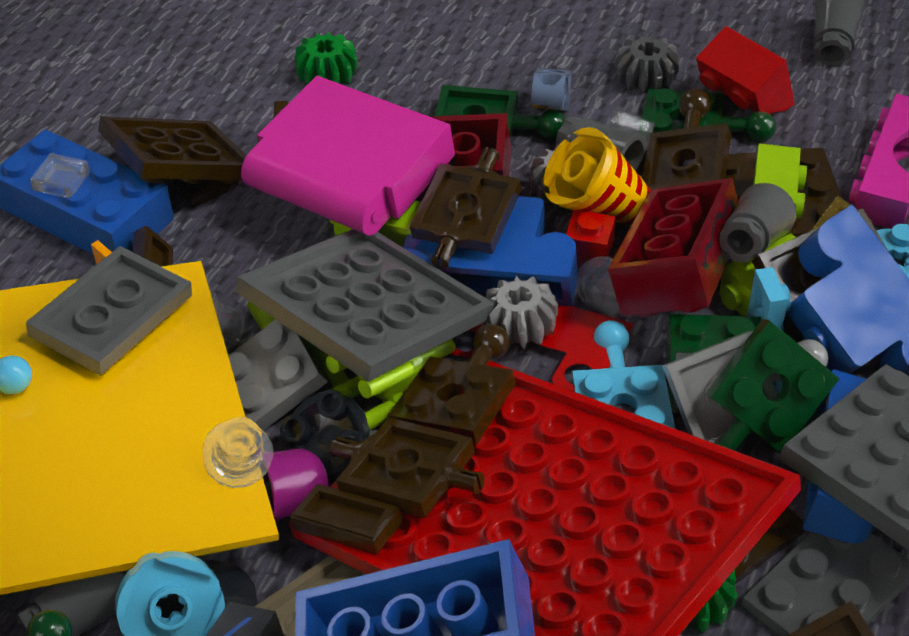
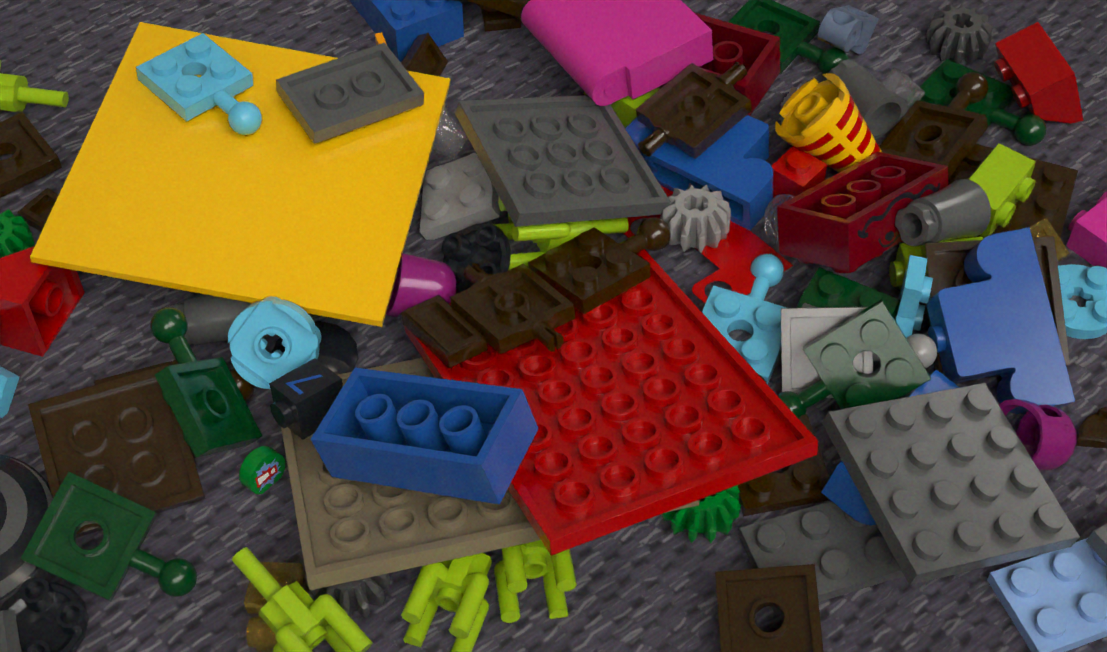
camera: 25 degrees right, 5 degrees up
(237, 453) = (383, 245): clear piece -> none

